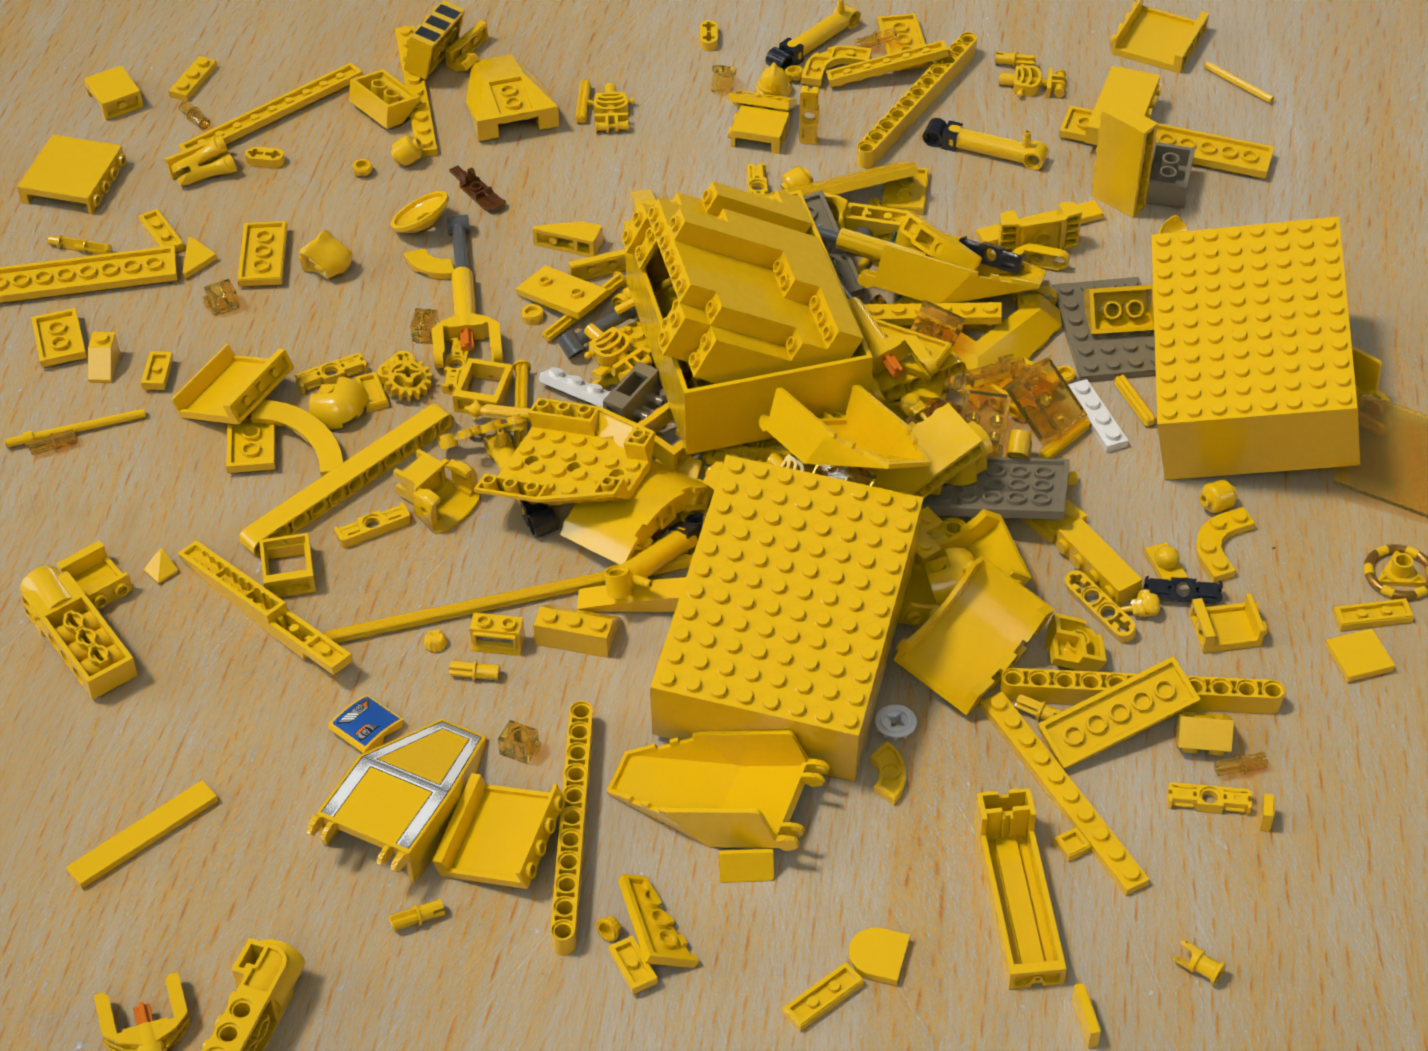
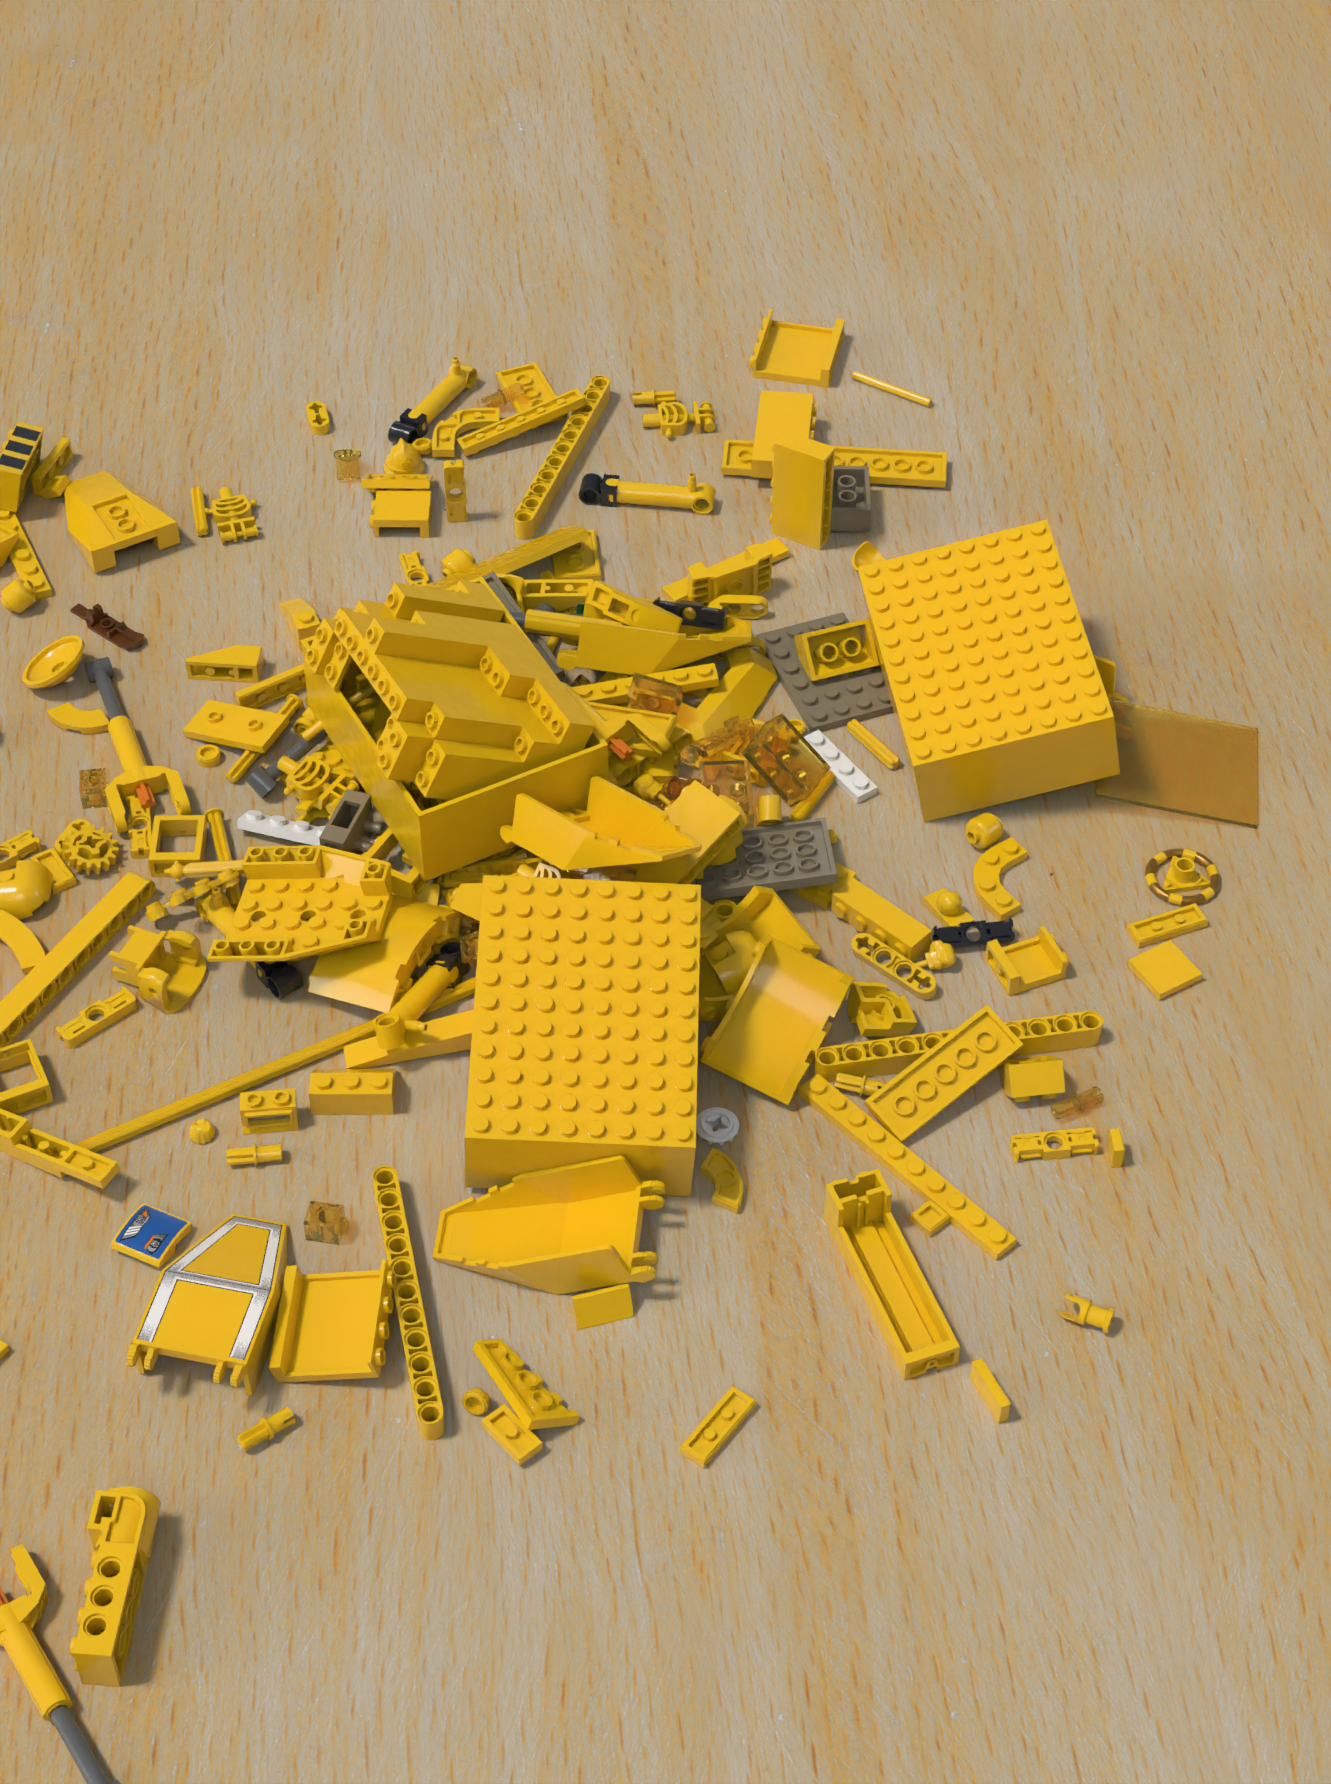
camera: 15 degrees left, 0 degrees up
(879, 954) = (763, 1371): yellow tile -> none

